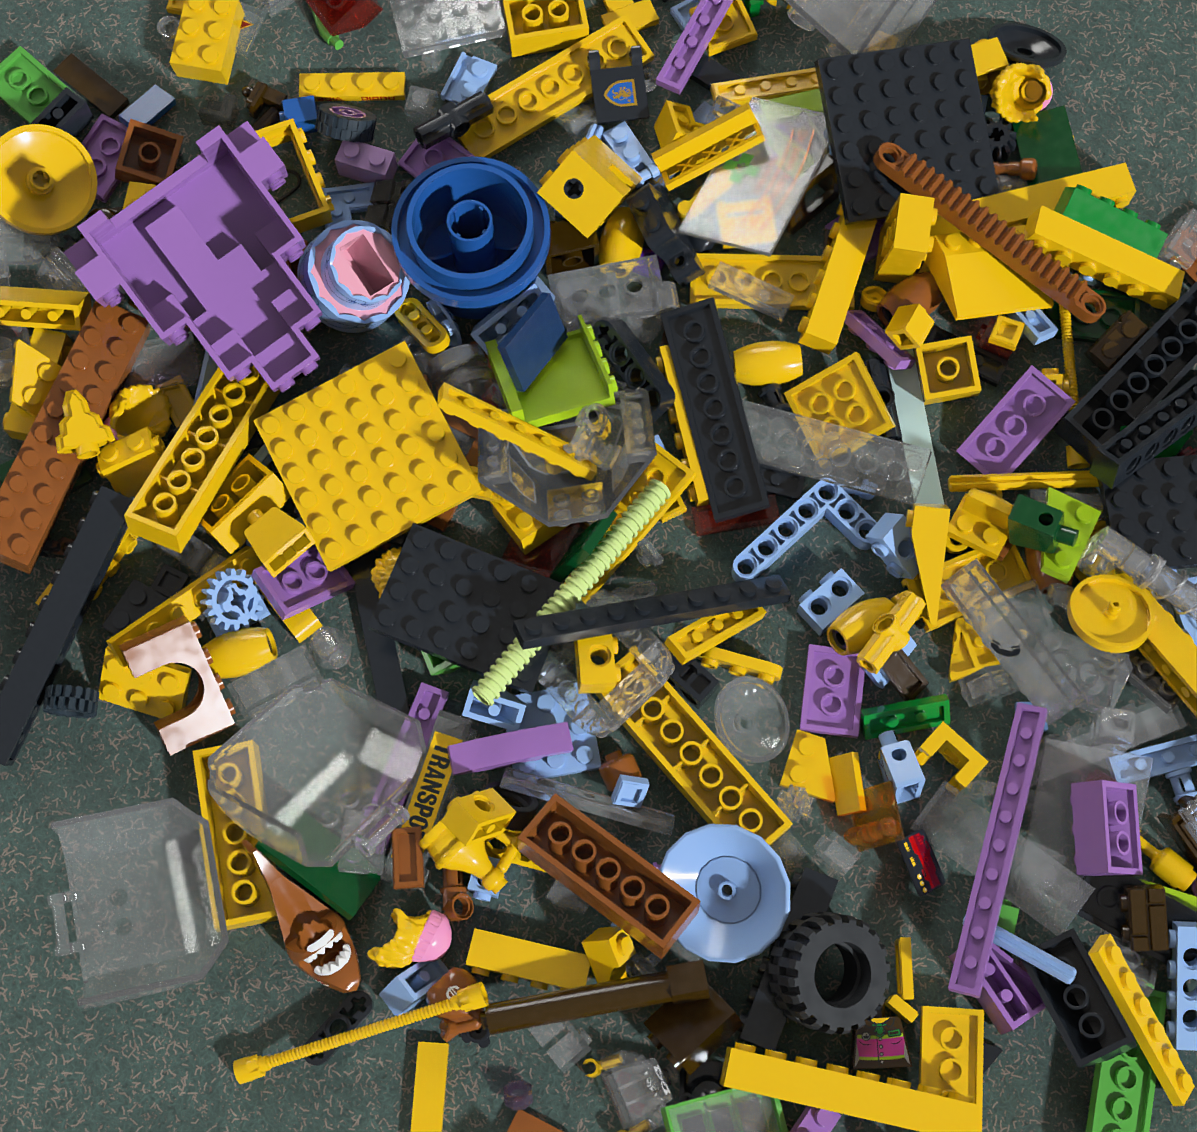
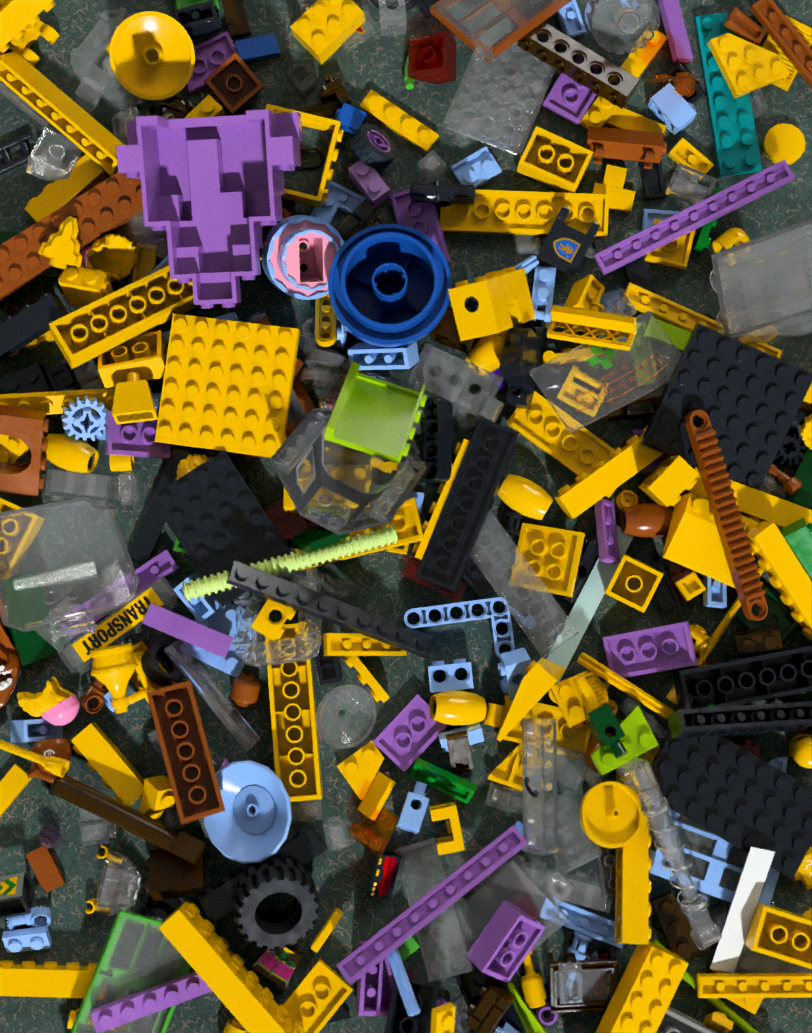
camera: 35 degrees right, 10 degrees up
(32, 378) = (60, 188): yellow wing -> none
(407, 858) = (79, 653): dark orange tile -> none
(478, 816) = (132, 662): yellow brick -> none
(512, 429) = (321, 441): yellow plate -> none
(532, 342) = (378, 385): dark blue tile -> none
(587, 444) = (363, 480): clear piece -> none
(630, 791) = (240, 707): light blue tile -> none
(649, 555) = (360, 567): clear plate -> none
(751, 291) = (550, 442): clear tile -> none
(795, 803) = (335, 785): clear gear -> none
(891, 632) = (467, 726): yellow piece -> none
(901, 1008) = (308, 953): yellow tile -> none
(909, 326) = (629, 540): yellow brick -> none

